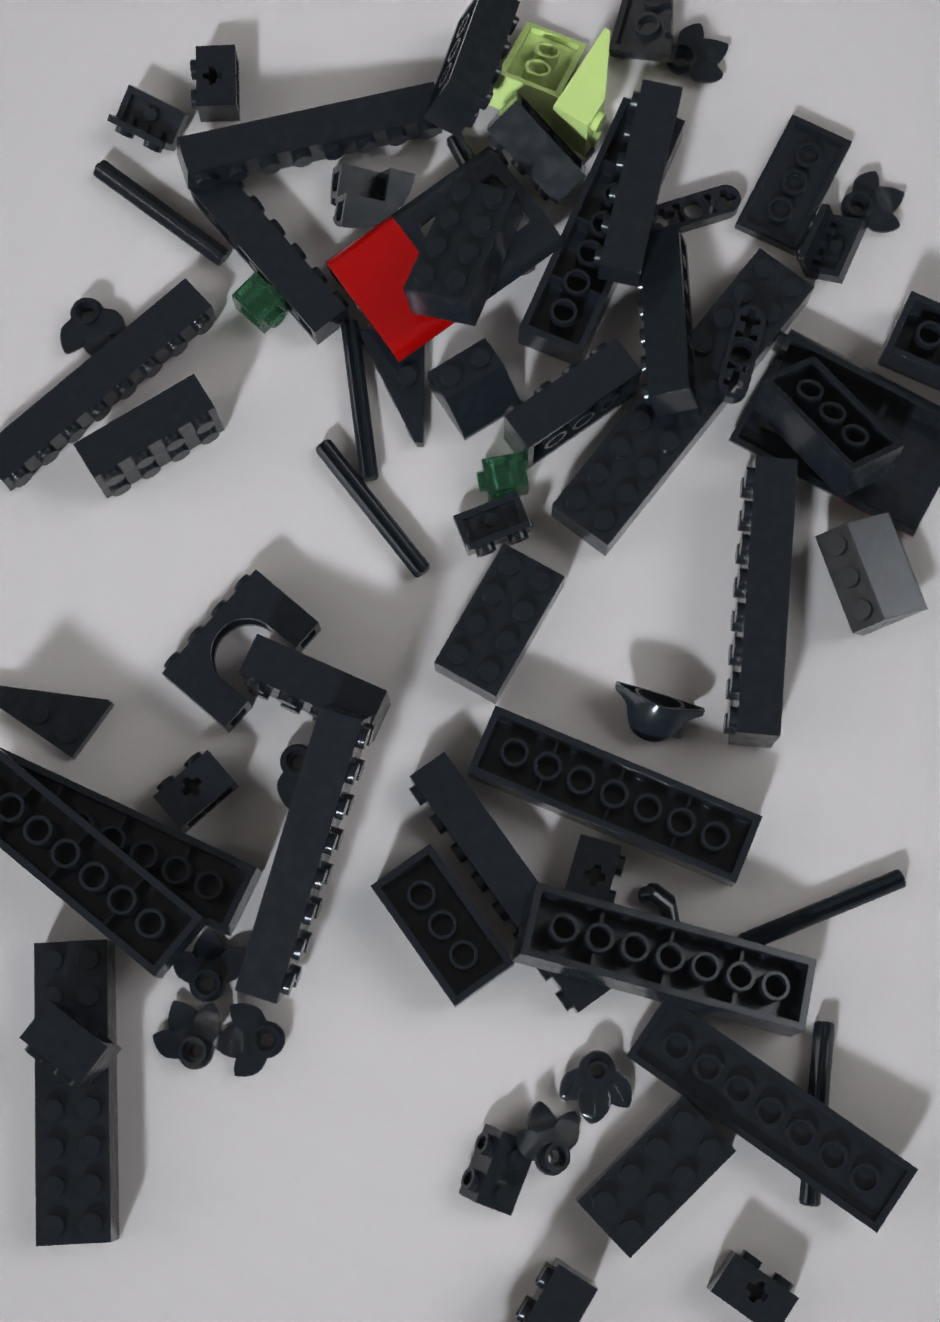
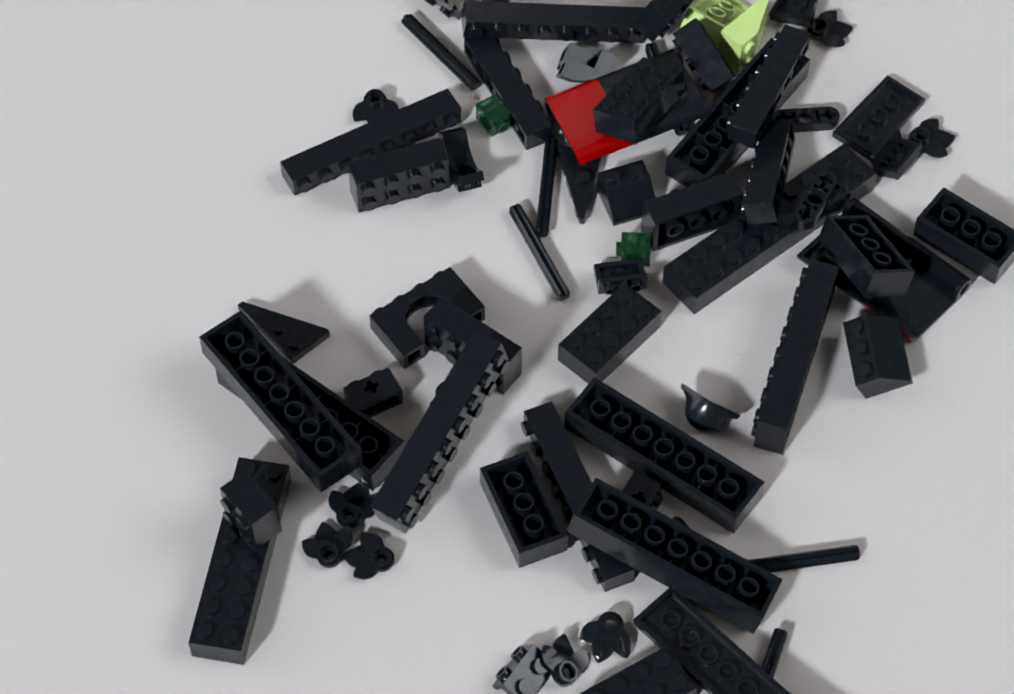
camera: 10 degrees right, 20 degrees down
(230, 389) = (461, 163): none -> black arch

